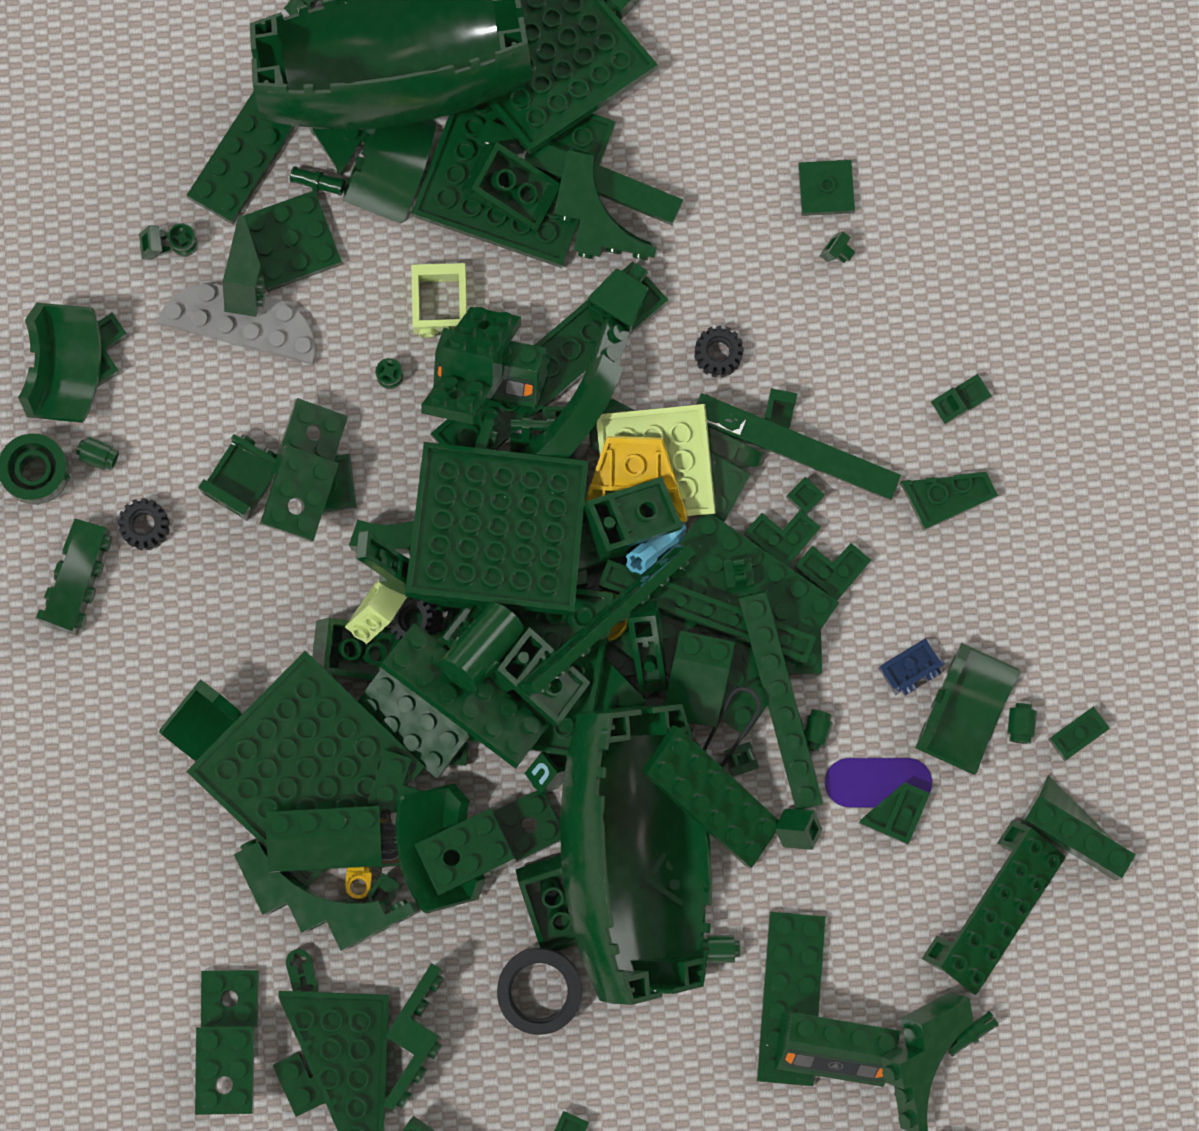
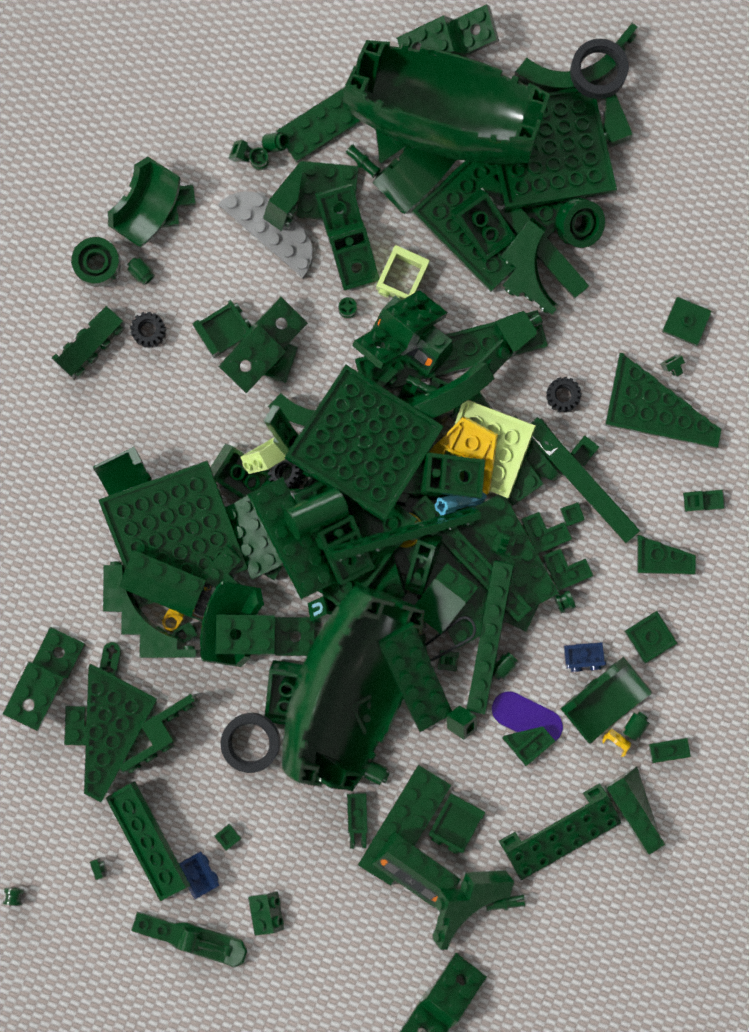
camera: 30 degrees right, 5 degrees up
(193, 208) = (275, 142): none -> dark green brick
(345, 283) = (347, 237): none -> dark green bracket
(647, 123) = (591, 226): none -> dark green piece
(726, 1019) = (357, 817): none -> dark green hinge
(836, 316) = (648, 407): none -> dark green wing
(852, 611) = (566, 601): none -> dark green wheel
(856, 963) = (456, 824): none -> dark green panel
(982, 602) = (650, 637): none -> dark green tile
(1008, 752) = (619, 740): none -> yellow piece

